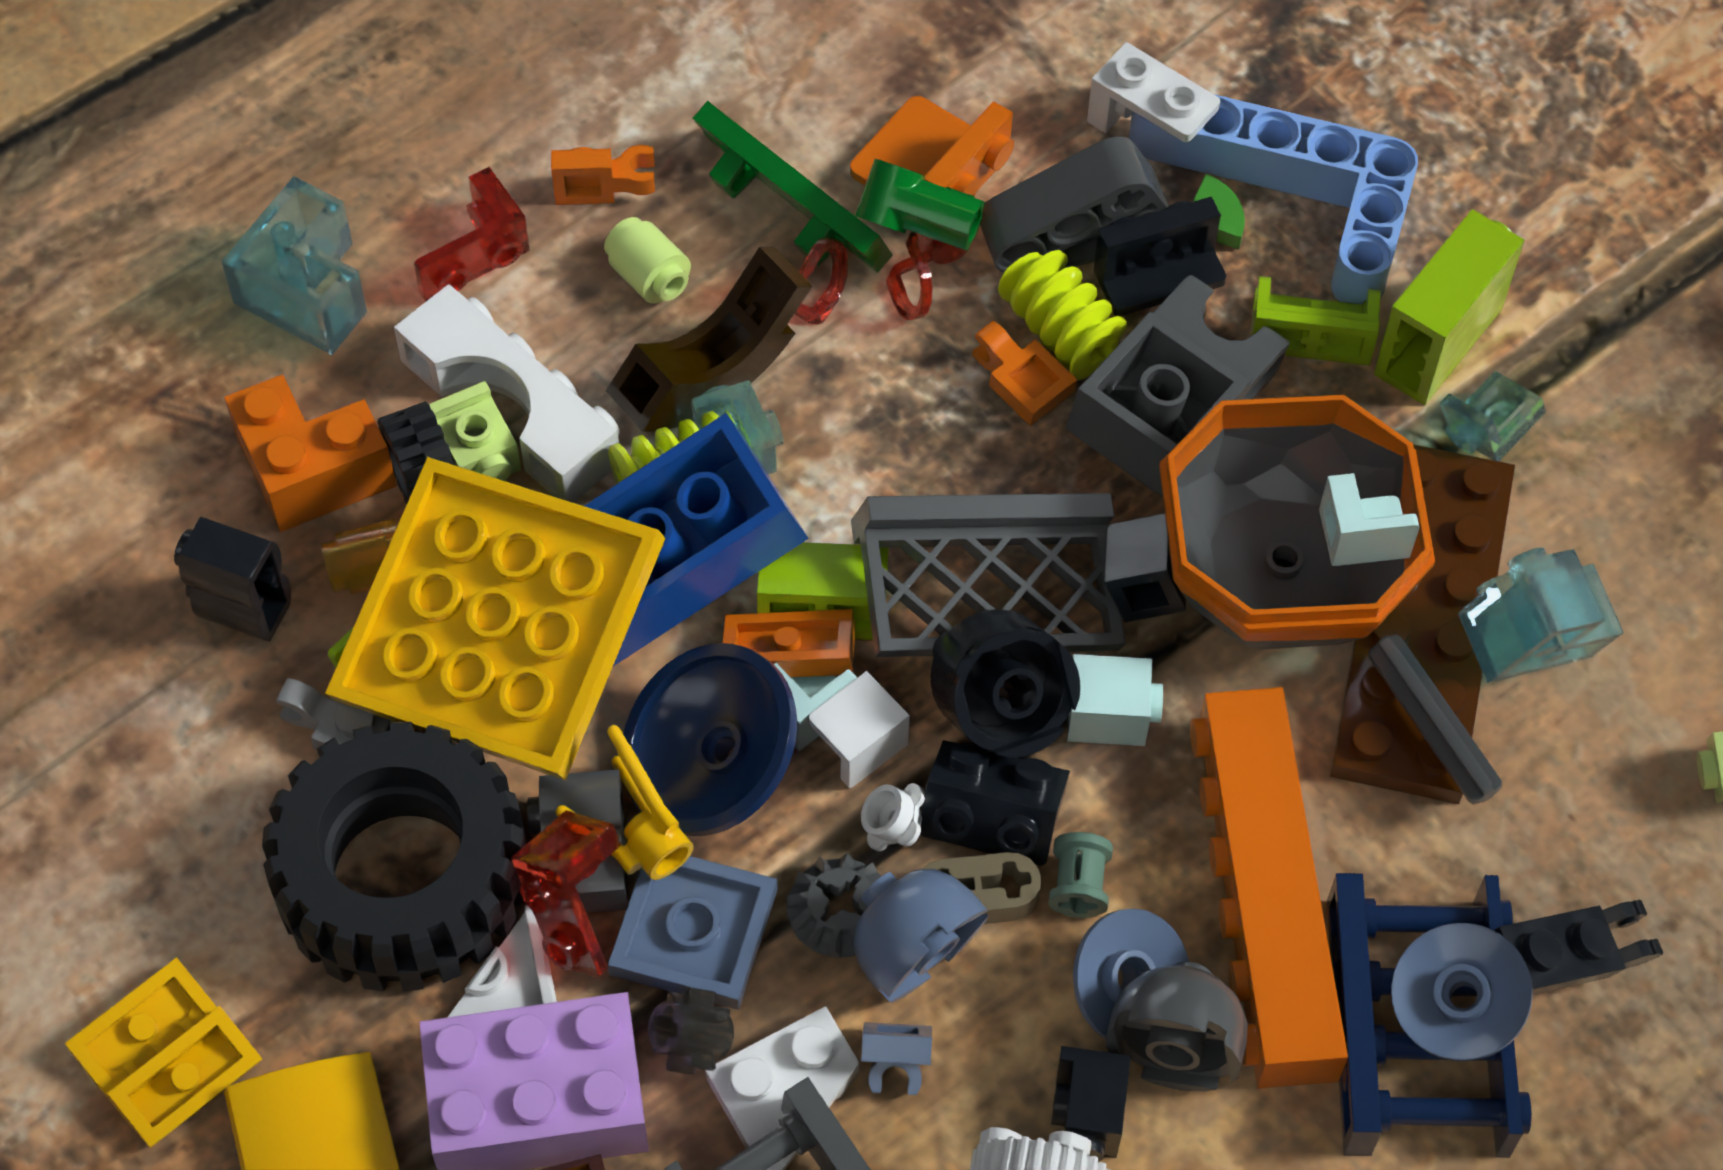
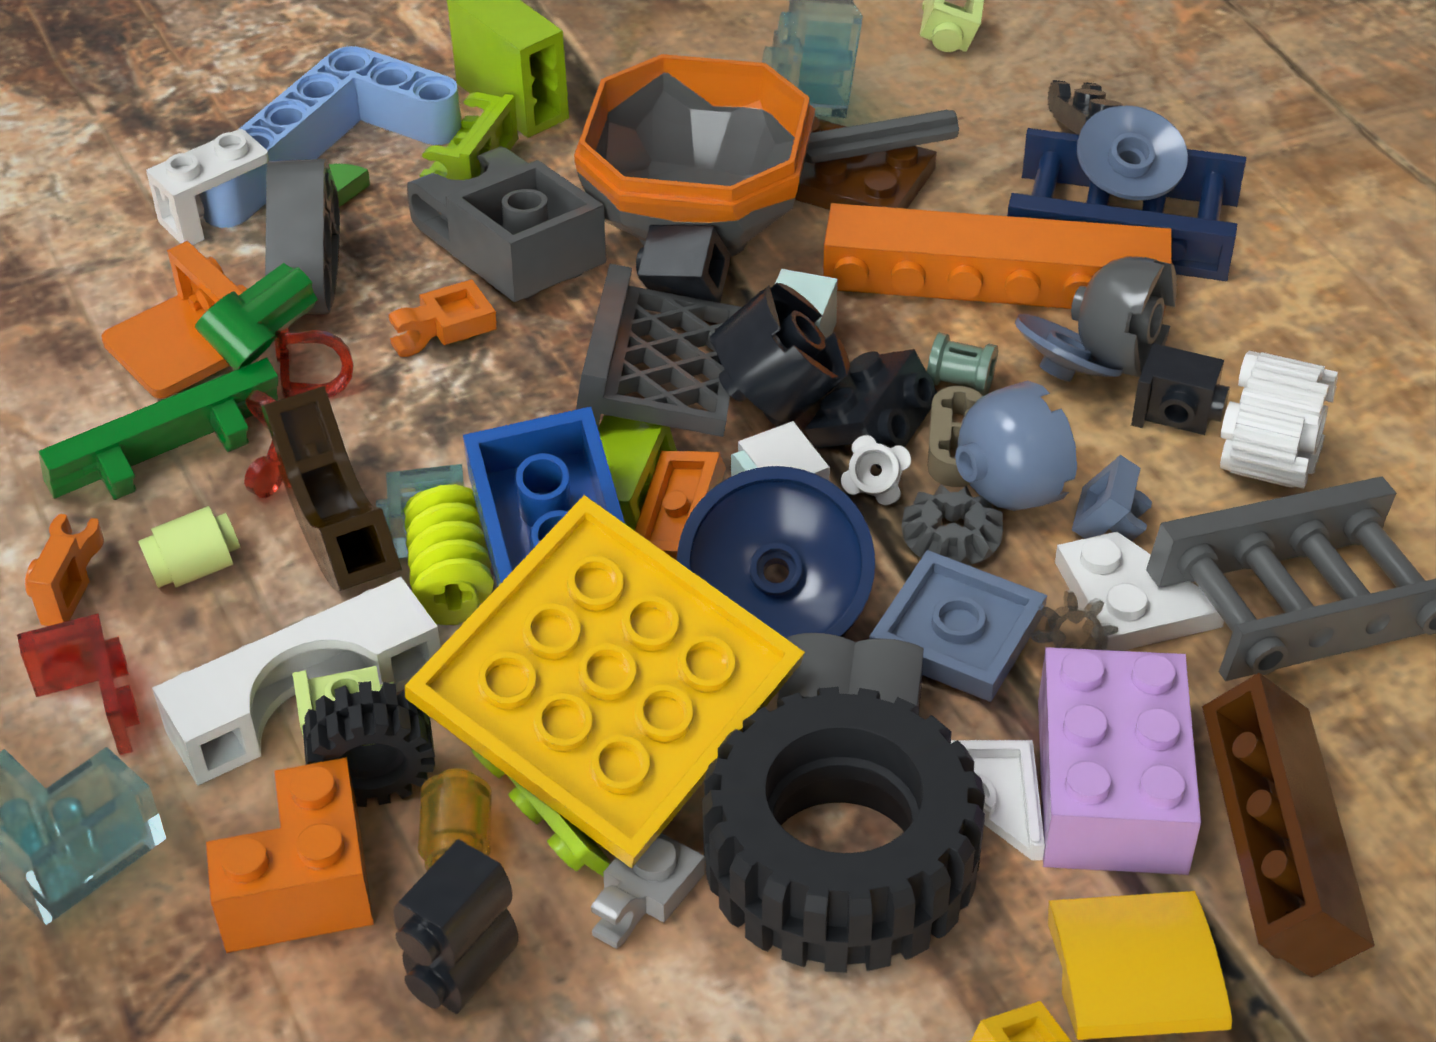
camera: 75 degrees left, 15 degrees down
(549, 874) = (924, 672): clear red bracket -> none
(653, 834) = (884, 607): yellow plant -> none
(1062, 310) = (398, 270): neon yellow piece -> none
(1150, 255) = (368, 213): black bracket -> none
(1365, 527) = (738, 78): light aqua panel -> none
(1492, 416) = (600, 61): clear light blue bracket -> none

